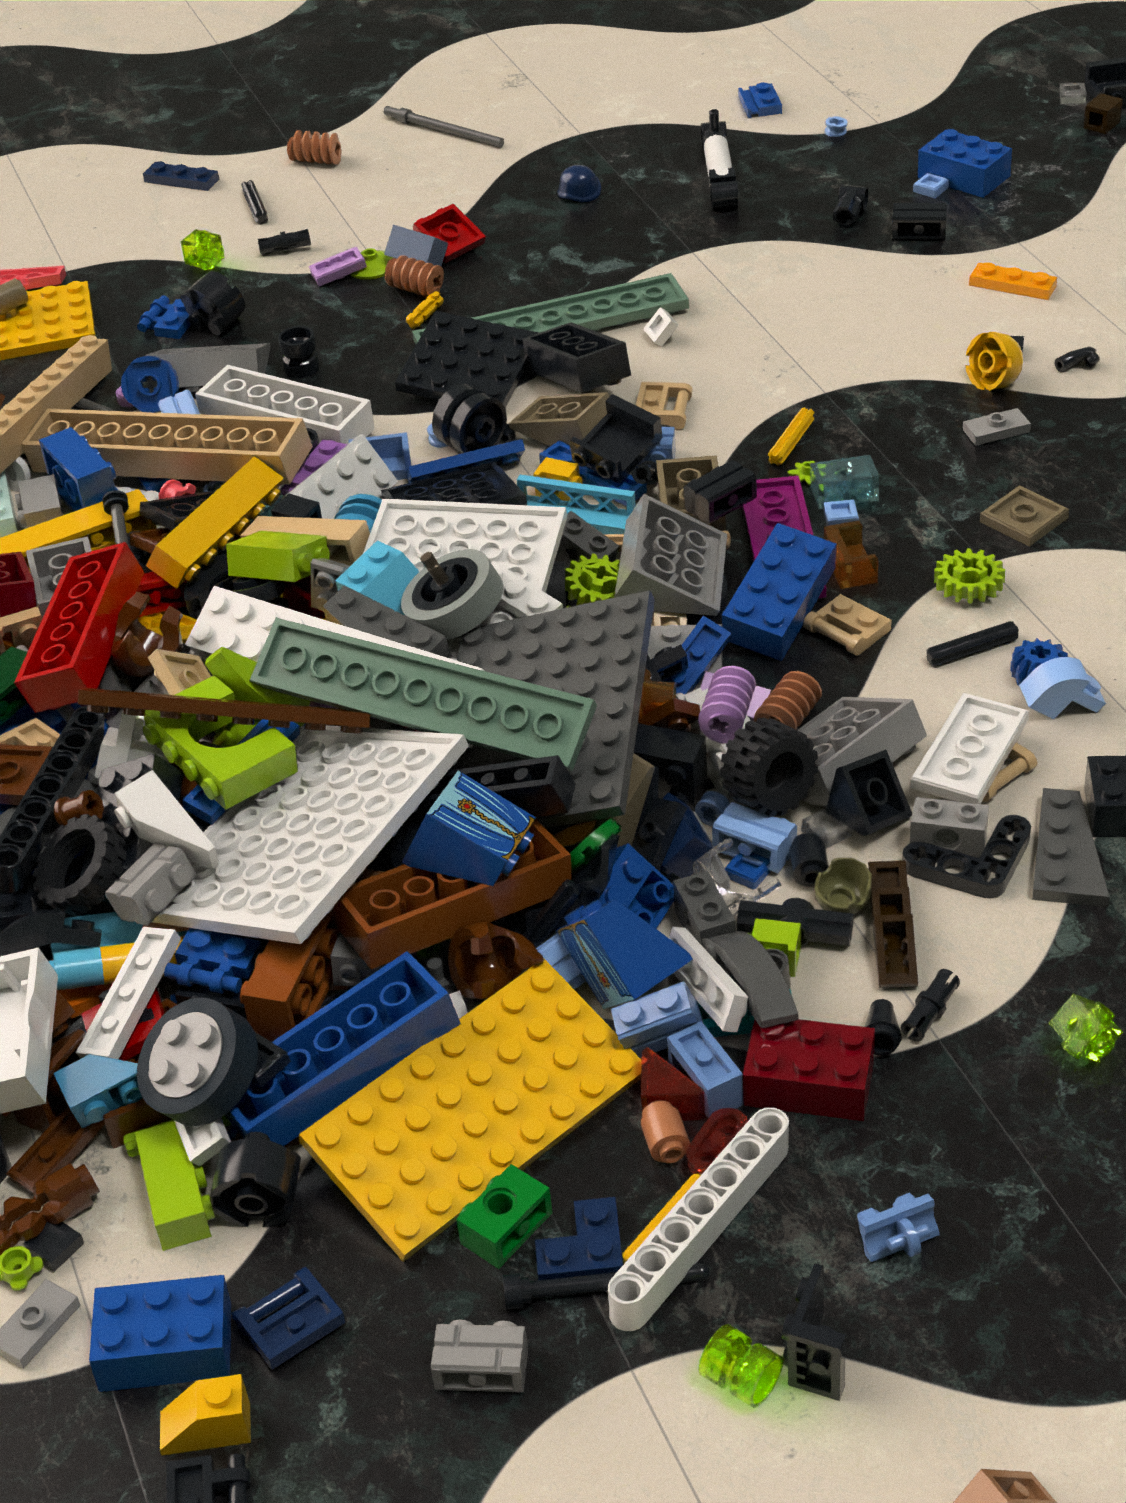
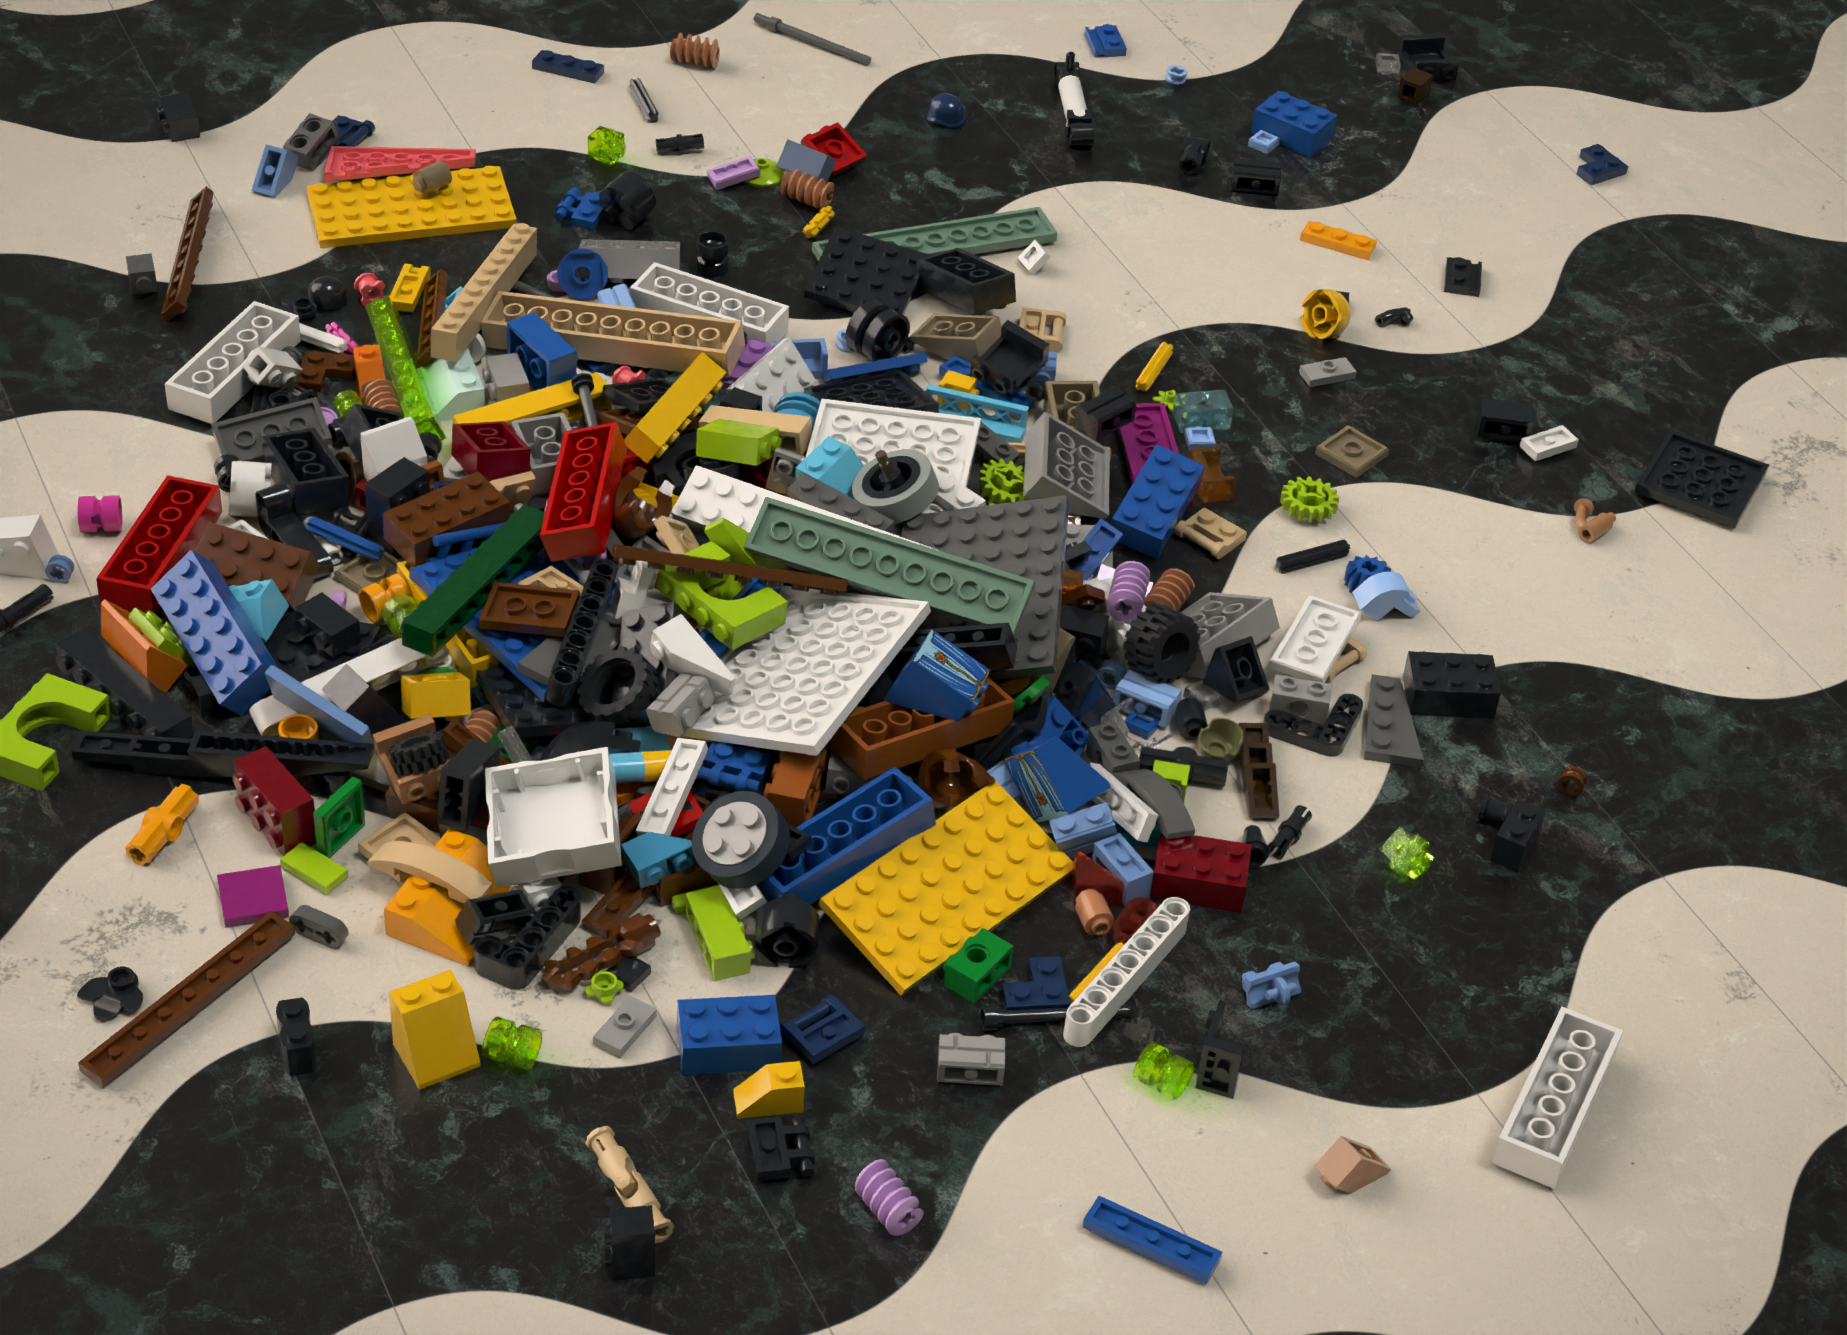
camera: 10 degrees left, 0 degrees up
(86, 803) = (613, 640): reddish brown bush -> none

